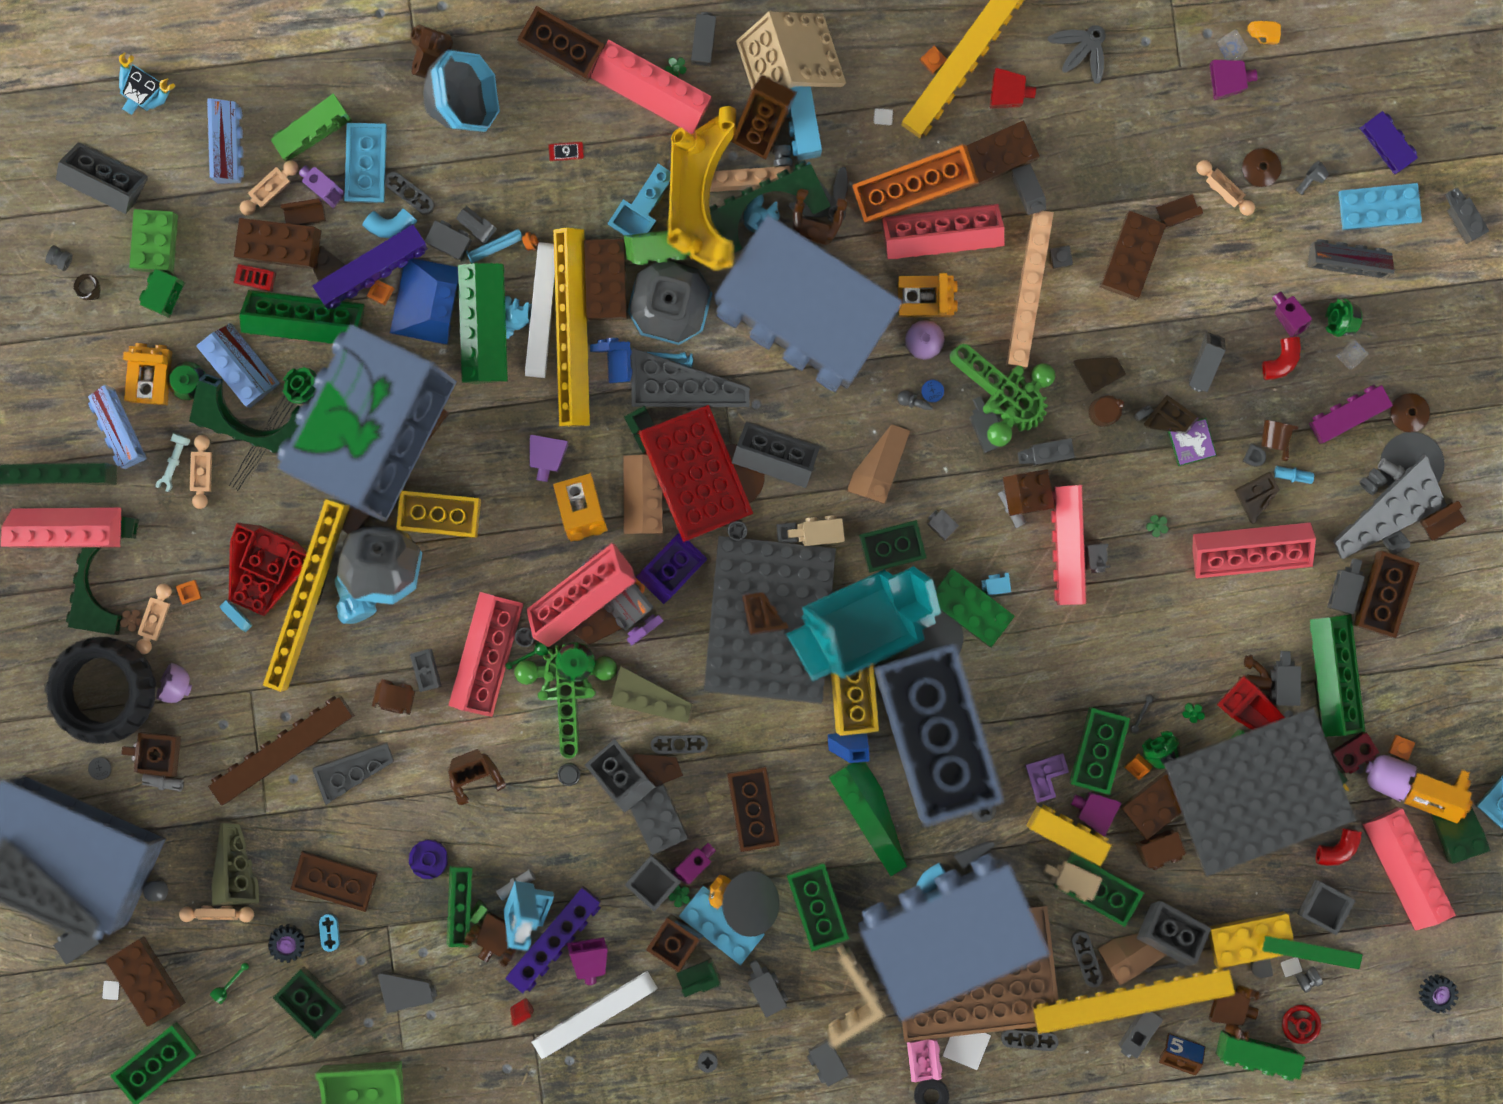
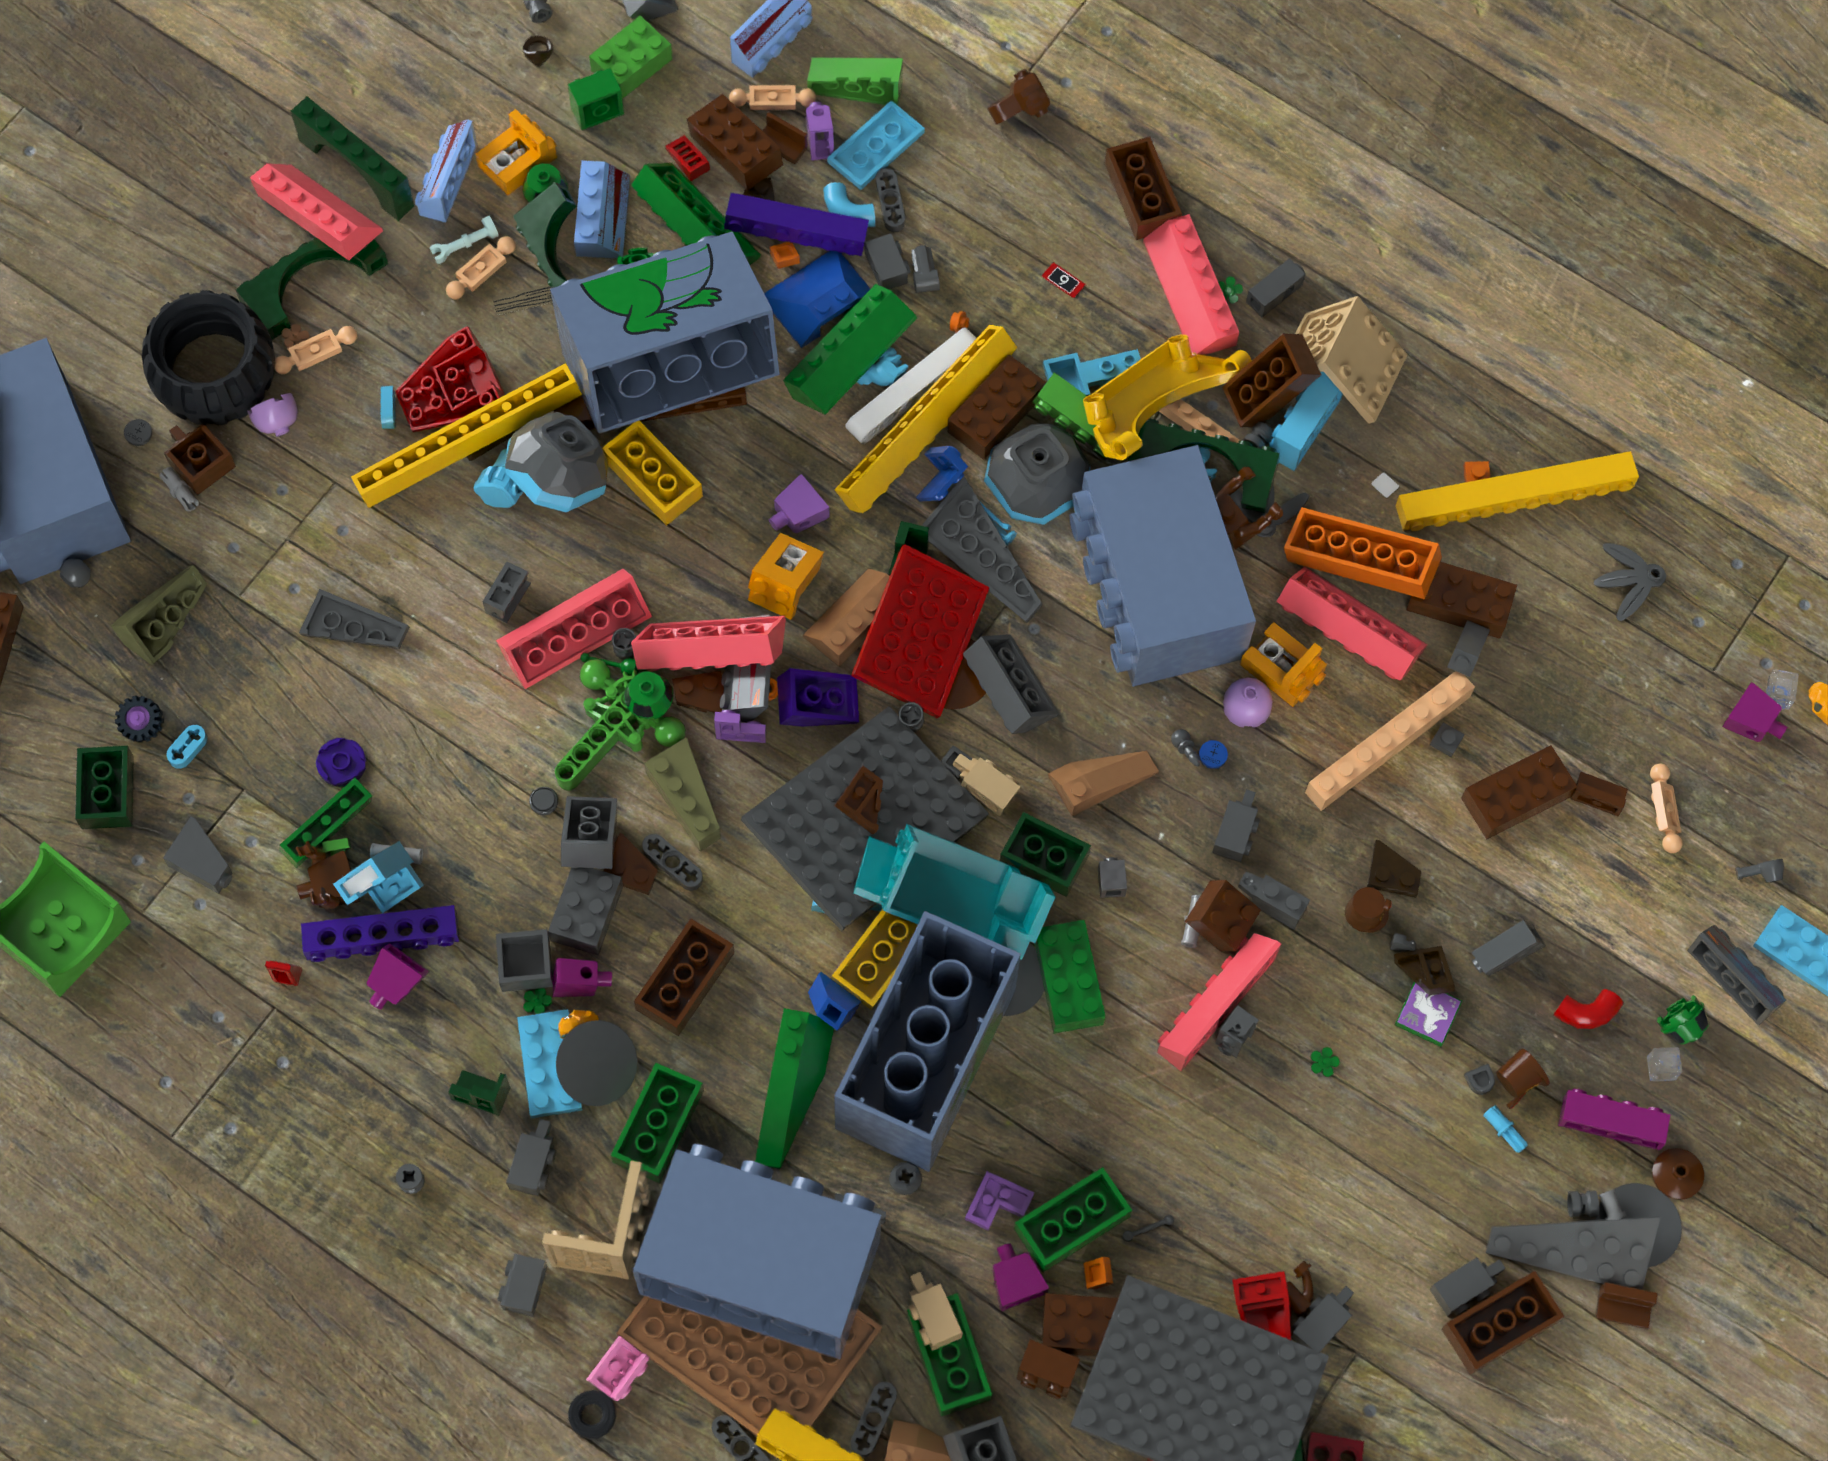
camera: 40 degrees right, 20 degrees down
(188, 592) = (367, 354): orange plate -> none
(220, 994) = (35, 712): green hinge -> none
(245, 914) = (102, 636): light nougat plate -> none
(281, 750) = (309, 551): reddish brown brick -> none
(333, 881) = (237, 706): reddish brown tile -> none
(393, 697) = (454, 589): reddish brown brick -> none
(461, 92) = (1016, 146): rock -> none
(470, 768) = (460, 705): reddish brown torso -> none
(494, 246) = (925, 301): medium azure axle -> none
(594, 1014) = (348, 1036): white beam -> none
(674, 943) = (489, 1034): reddish brown brick -> none
(967, 1049) = (672, 1401): white sticker -> none
(996, 585) = (1114, 977): medium azure brick -> none
(1009, 89) = (1526, 554): red torso -> none
(1041, 376) = (1302, 841): bright green piece -> none
(1063, 832) = (967, 1272): yellow brick -> none
(1161, 749) = (1140, 1269): green cone -> none
(1194, 712) = (1201, 1270): green plant -> none
(1253, 172) = (1711, 830): reddish brown dish -> none
(1253, 550) = (1401, 1165): coral slope -> none
(1257, 495) = (1451, 1116): dark brown wing -> none
(1295, 321) = (1633, 975): magenta torso -> none
(1337, 675) = (1383, 1362): green slope -> none
(1396, 542) = (1557, 1283): dark grey plate -> none

